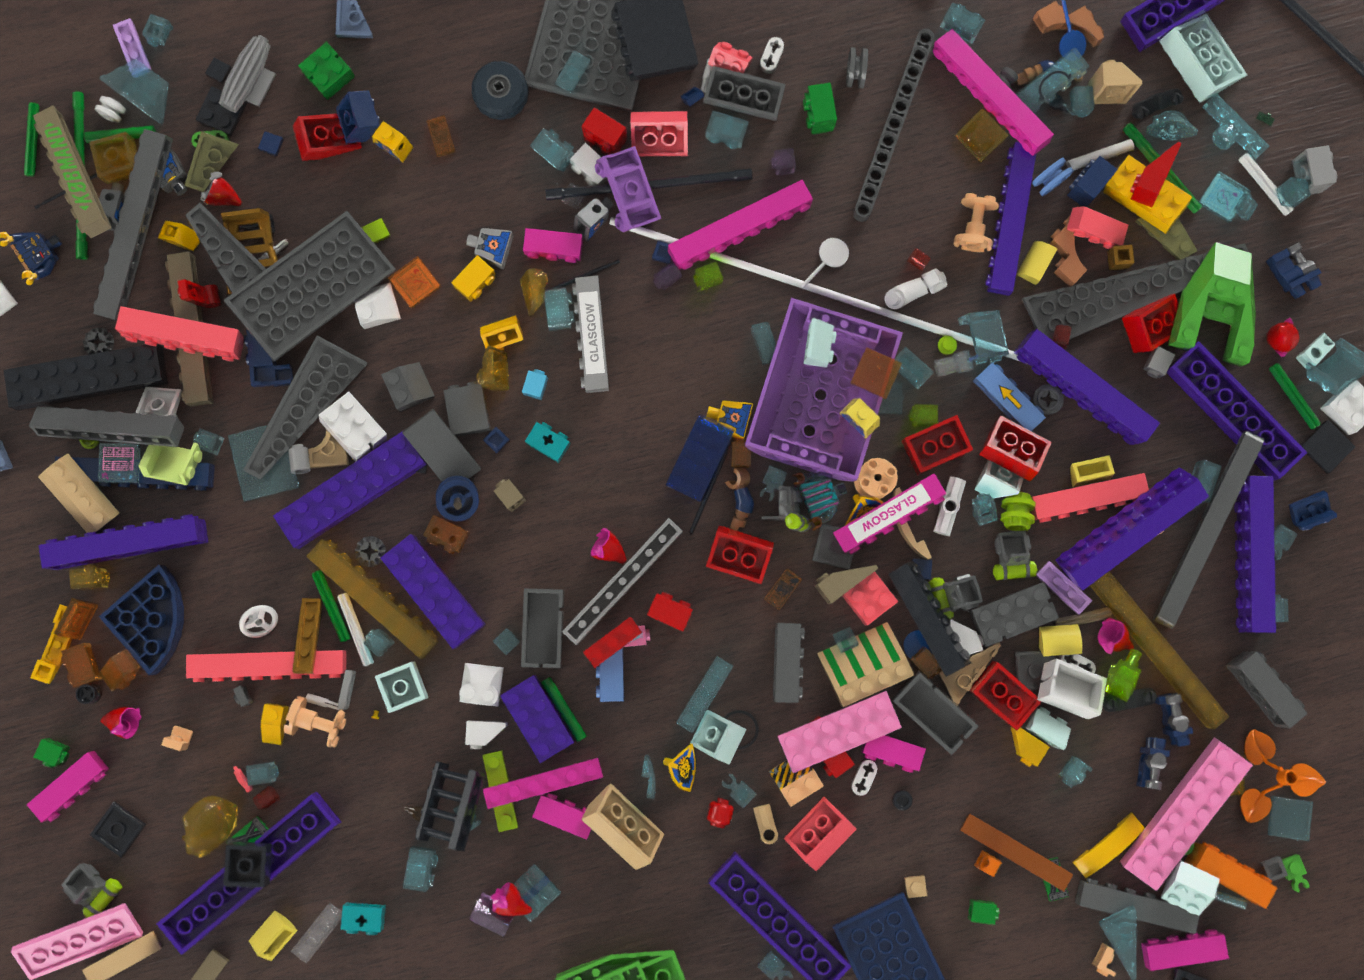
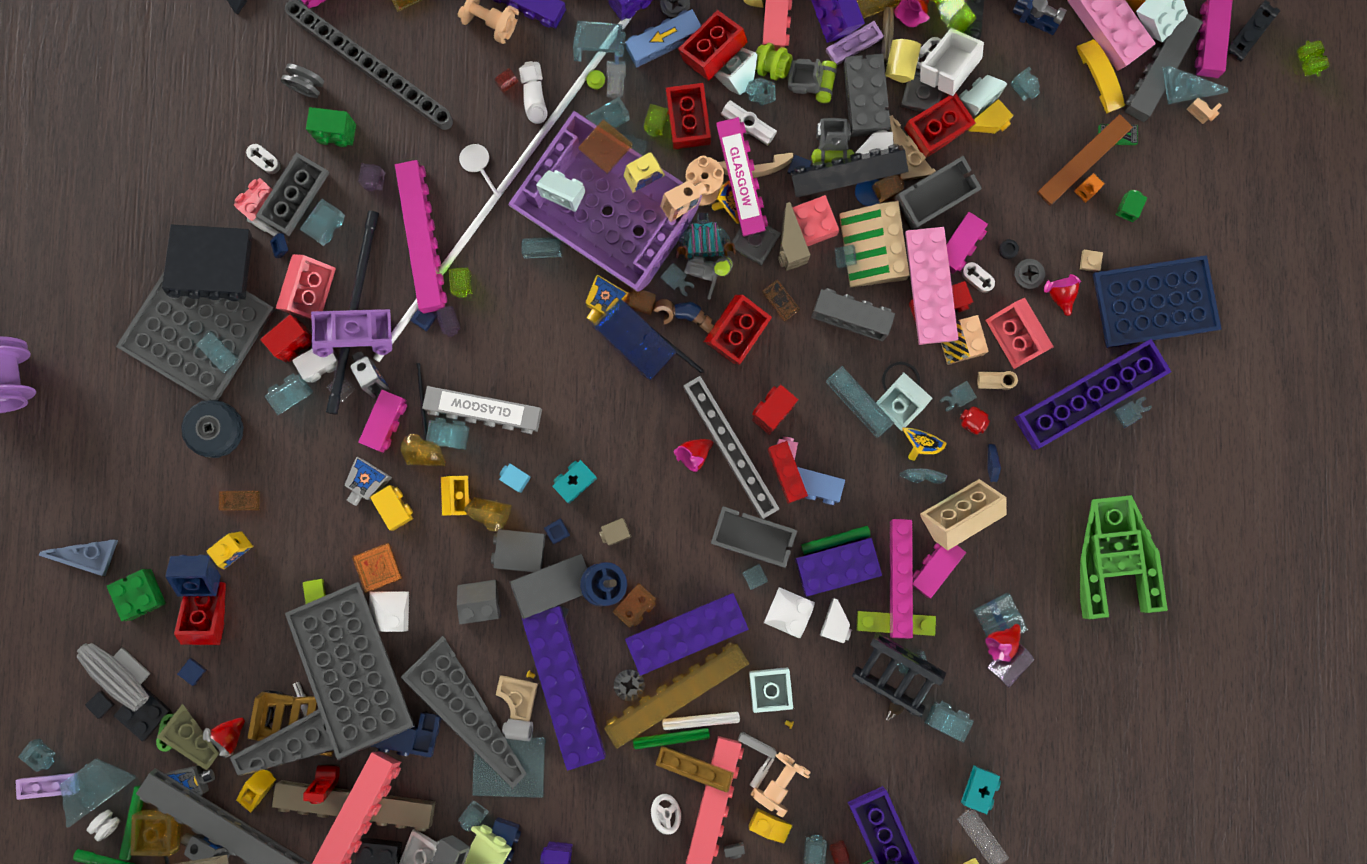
camera: 70 degrees left, 0 degrees up
(352, 426) = (502, 667): white piece -> none
(378, 641) = (720, 701): clear light blue brick -> none
(683, 843) = (993, 463): none -> dark blue tile
(839, 455) = (681, 199): none -> light nougat torso
(874, 867) = (1064, 292): none -> red hat
(891, 832) = (1034, 267): none -> dark grey gear

